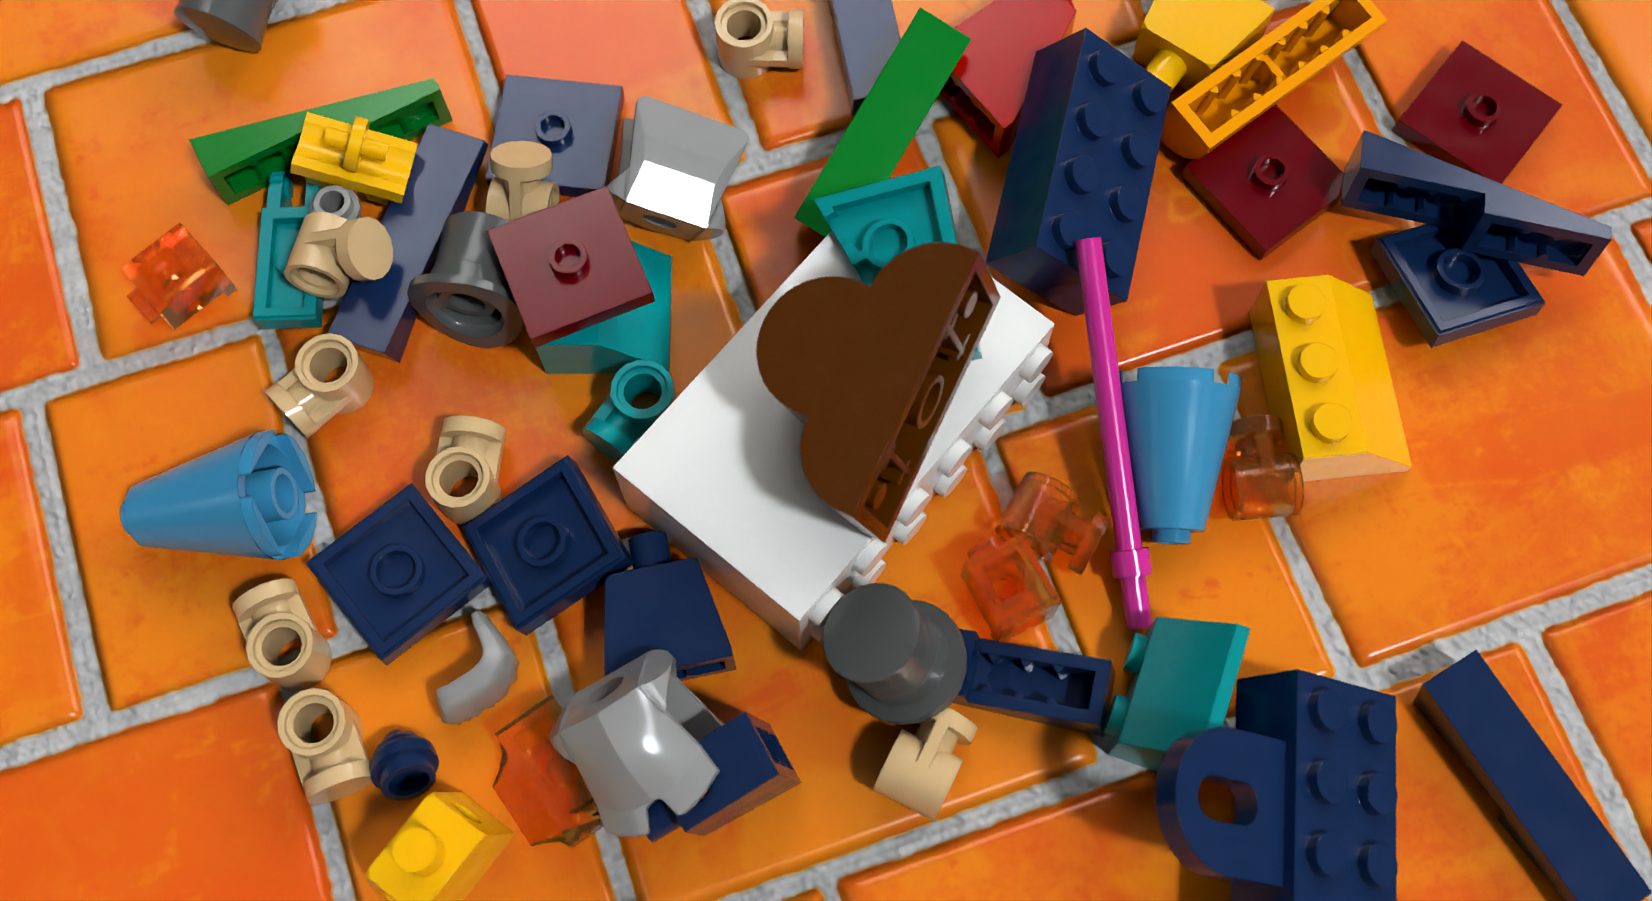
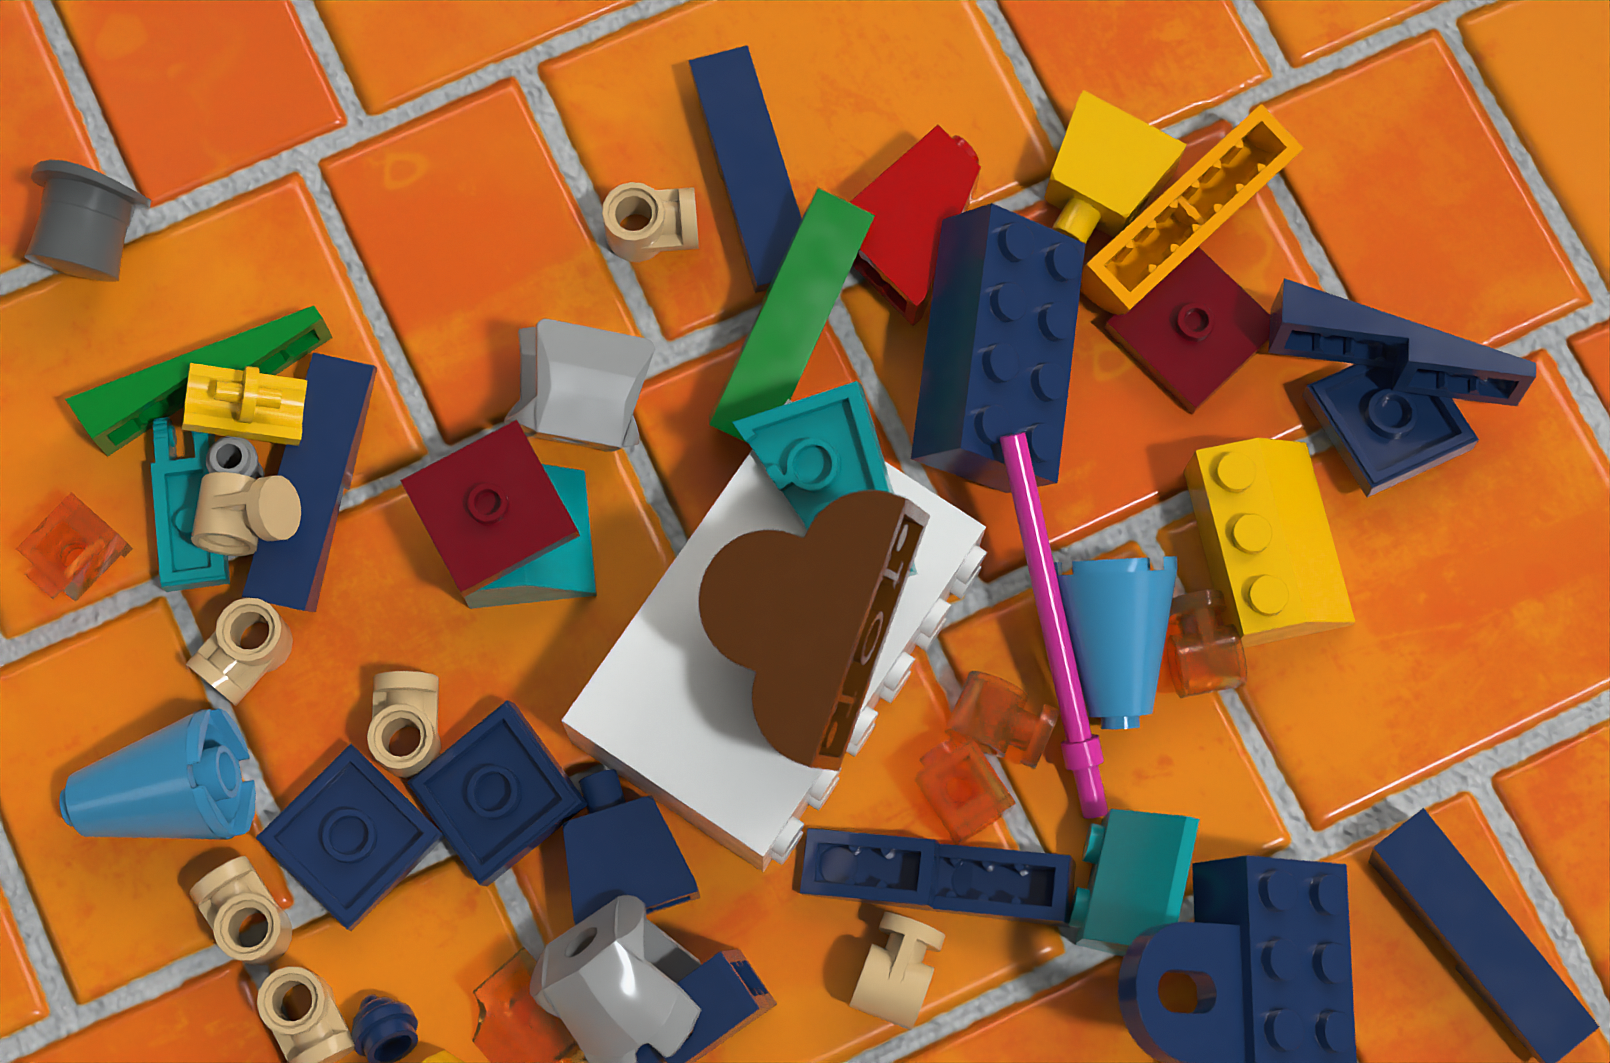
camera: 10 degrees left, 5 degrees up
(467, 286) = (381, 529): dark grey piece -> none
(484, 683) = (454, 940): light grey hair -> none
(517, 180) = (421, 418): tan piece -> none
(570, 119) = (446, 349): plate -> none
(618, 424) = (560, 666): teal piece -> none
(896, 653) = (859, 873): dark grey piece -> none
(1477, 115) = (1404, 237): dark red plate -> none

